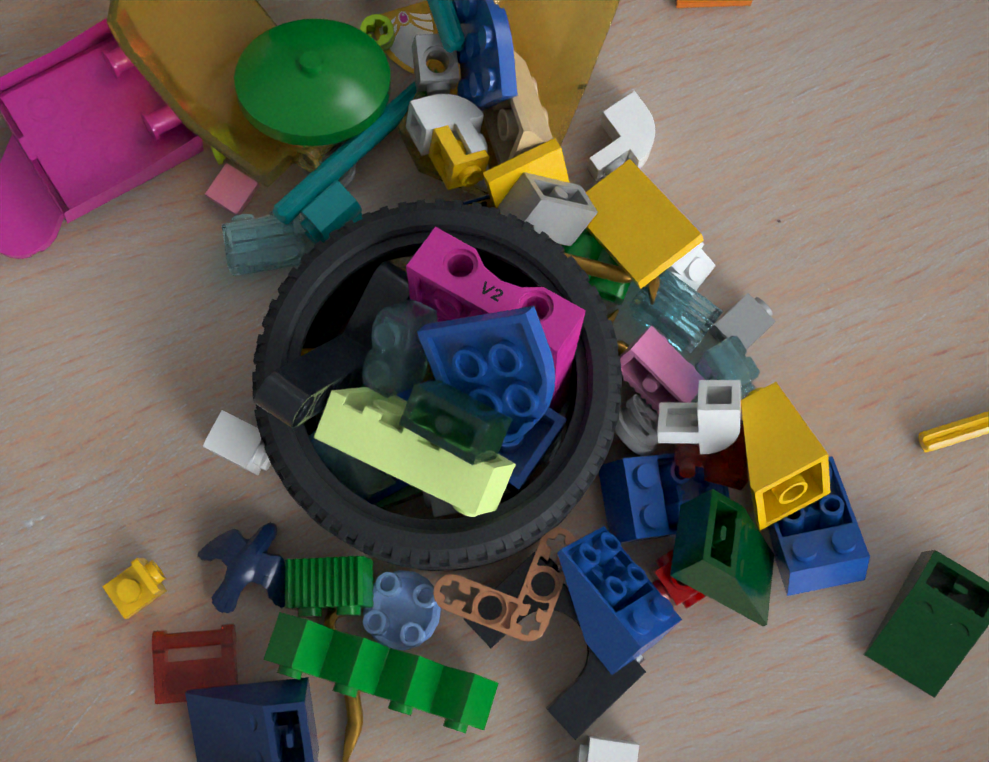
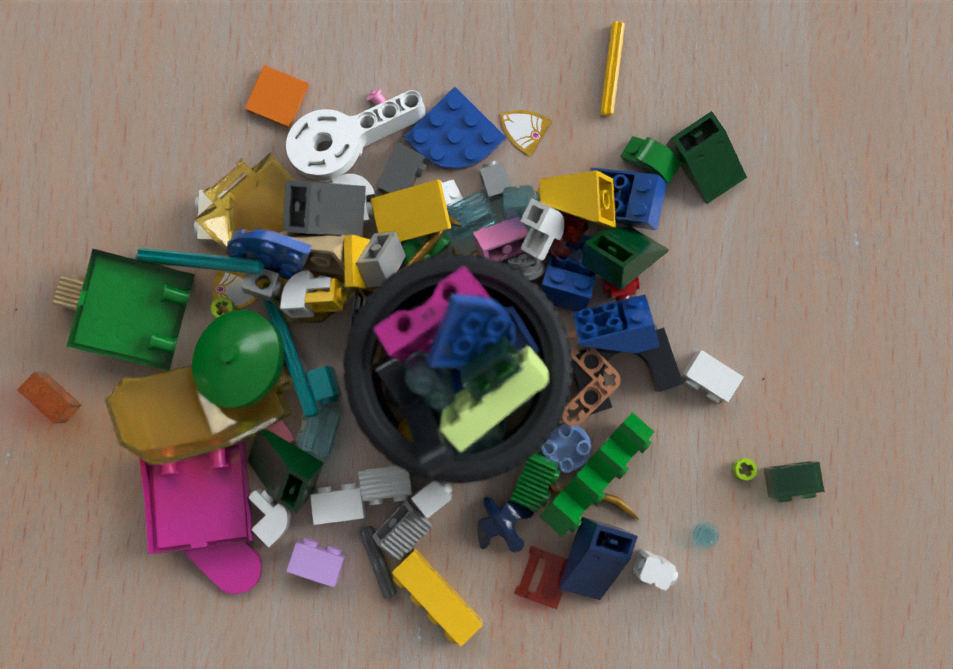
camera: 65 degrees left, 5 degrees up
(75, 325) = (317, 562): none -> lavender brick
(97, 521) = (437, 597): none -> yellow brick
(113, 412) = (378, 563): none -> dark grey axle
(114, 240) = (276, 518): none -> white brick
(136, 587) = (484, 592): yellow bracket -> none
(170, 317) = (337, 505): none -> white brick
(171, 424) = (402, 531): none -> light grey brick
(186, 219) = (284, 469): none -> dark green slope
(229, 368) = (385, 483): none -> white brick
(582, 96) = (323, 208): none -> dark grey slope
(693, 184) = (401, 170): none -> dark grey brick
(711, 87) = (347, 131): none -> white beam
(779, 105) = (376, 97): none -> bright pink piece
(783, 238) = (455, 133): none -> blue plate
(841, 335) = (525, 129): none -> sticker
(891, 538) = (652, 157): none -> green brick

